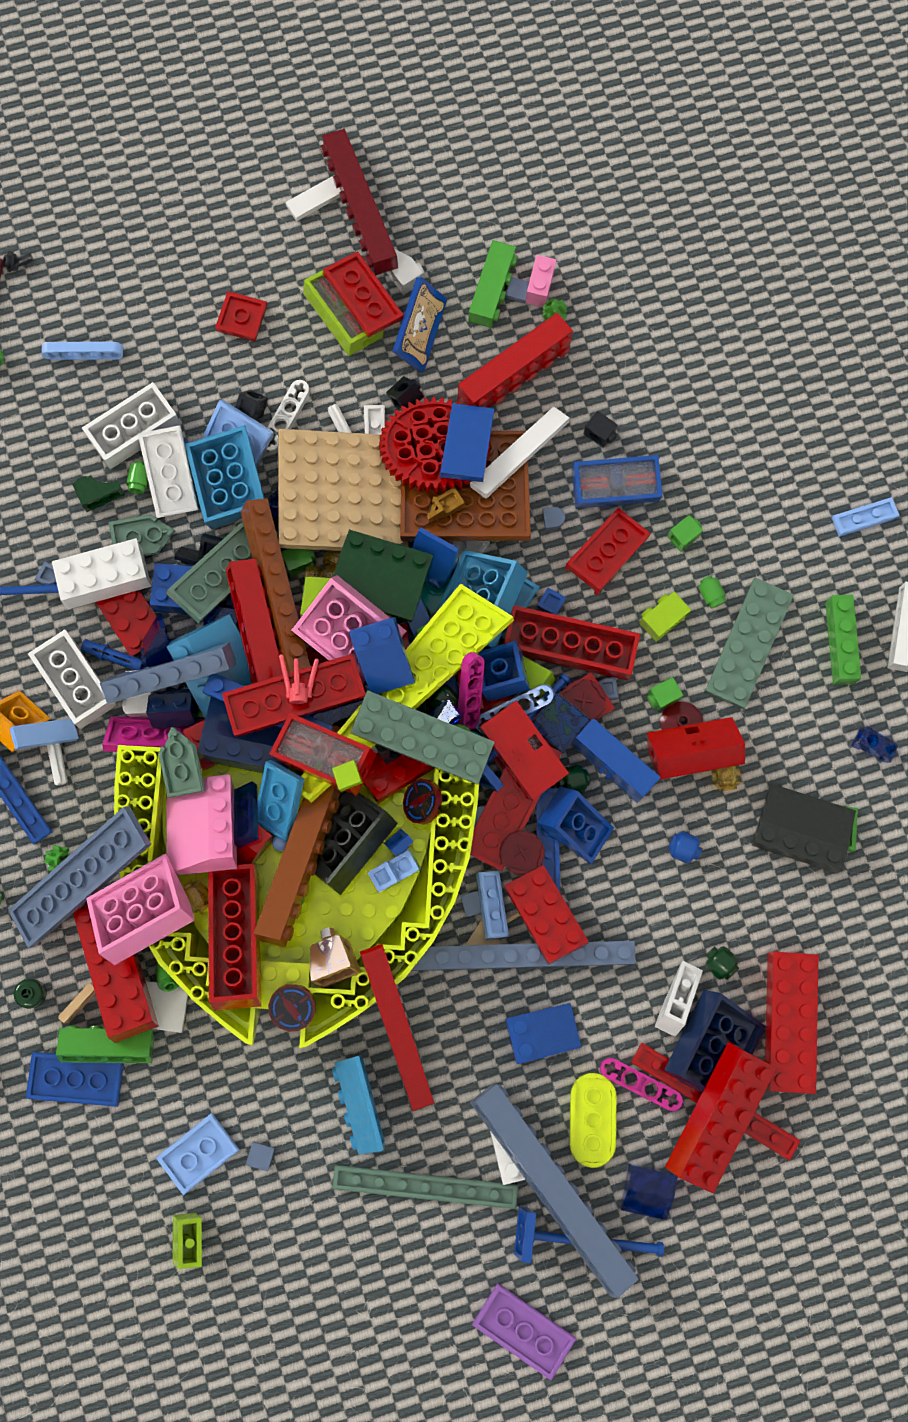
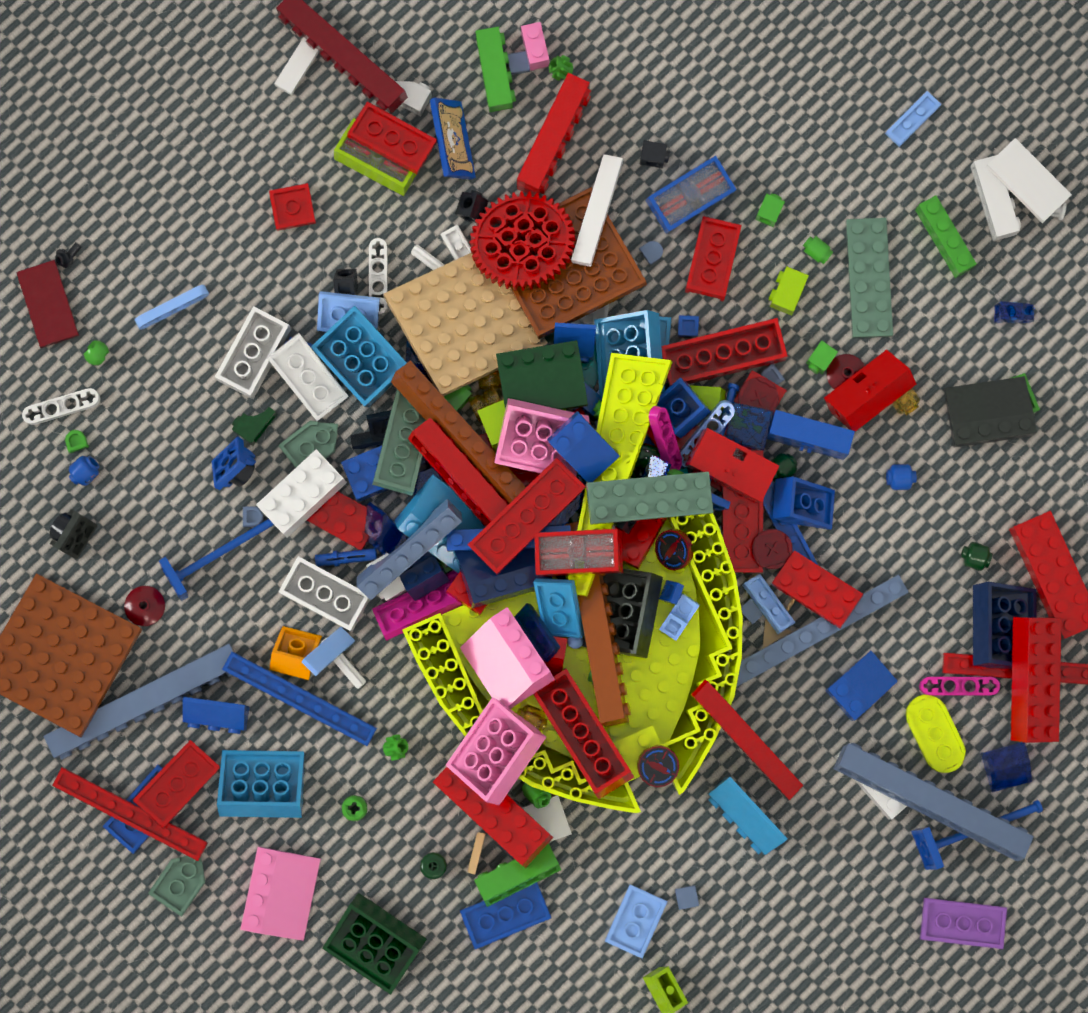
camera: 25 degrees left, 5 degrees up
(54, 518) = (233, 465): none -> blue piece
(79, 876) = (427, 752): sand blue plate -> none
(137, 478) = (282, 394): bright green brick -> none
(180, 765) = (464, 620): sand green tile -> none
(298, 693) = (531, 512): coral plant -> none
(332, 959) = (668, 712): medium nougat torso -> none
(347, 775) = (611, 560): lime tile -> none
(425, 1186) = (829, 853): sand green tile -> none
(445, 505) = (561, 289): pearl gold slope -> none
(467, 442) = (551, 226): blue tile -> none
(679, 999) = (957, 603): white slope -> none

